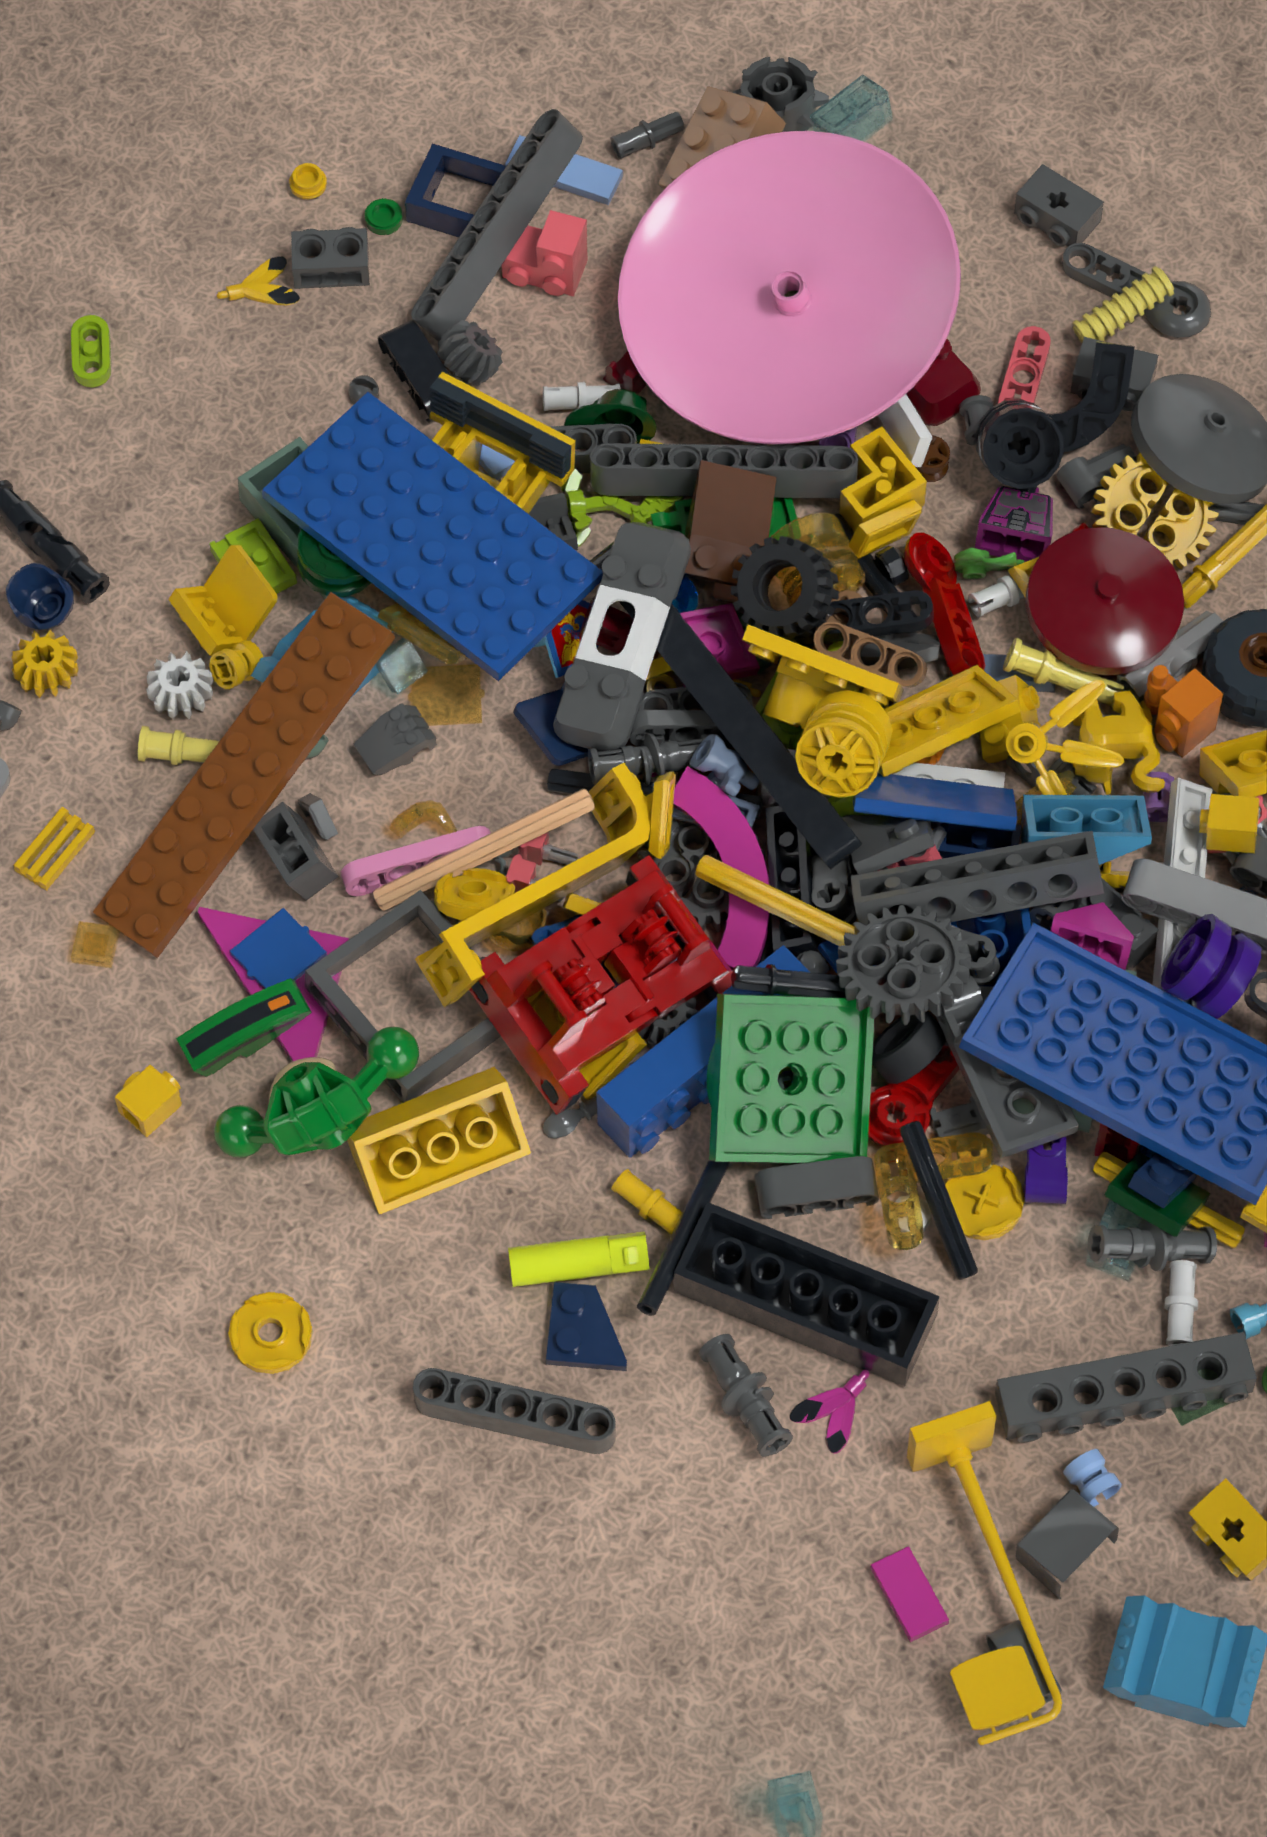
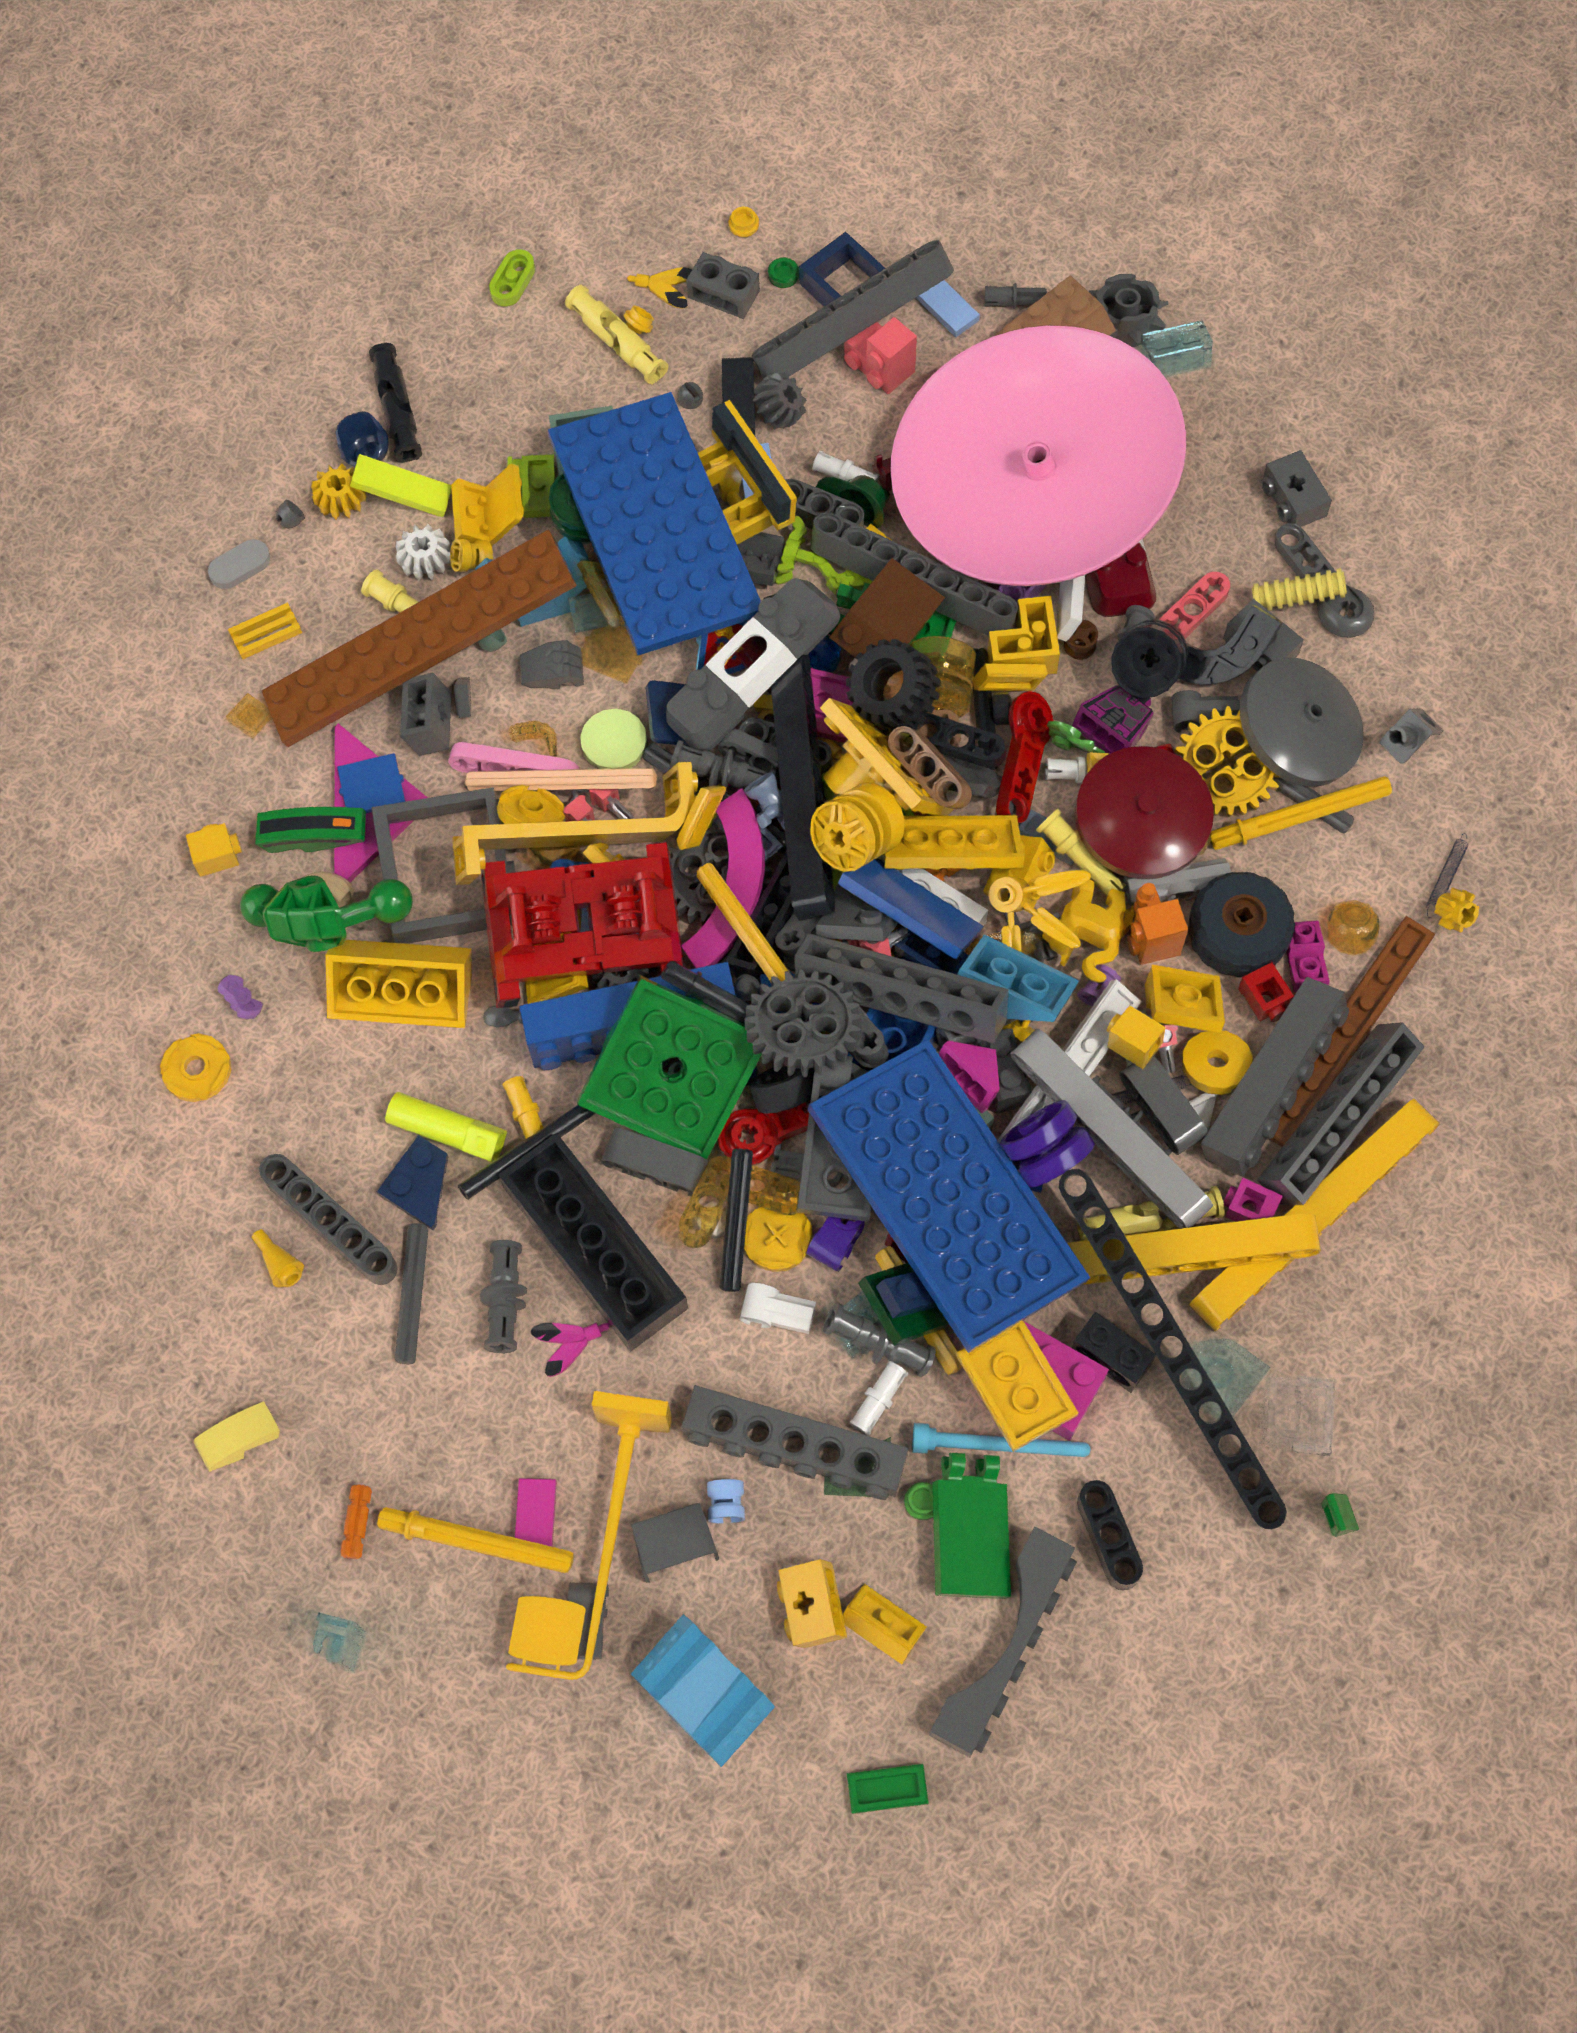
camera: 30 degrees right, 5 degrees up
(113, 626) = (400, 485): none -> neon yellow tile
(250, 362) = (618, 335): none -> light yellow piece
(260, 335) = (639, 320): none -> yellow plate
(273, 1238) = (239, 997): none -> medium lavender piece
(493, 1482) = (282, 1266): none -> yellow cone
(506, 786) = (613, 739): none -> yellowish green tile
(553, 1673) = (236, 1434): none -> light yellow slope
(645, 1443) = (411, 1294): none -> dark grey axle
(730, 1692) = (356, 1521): none -> orange axle
(865, 1644) = (474, 1539): none -> yellow axle
(1020, 1272) = (771, 1308): none -> white piece

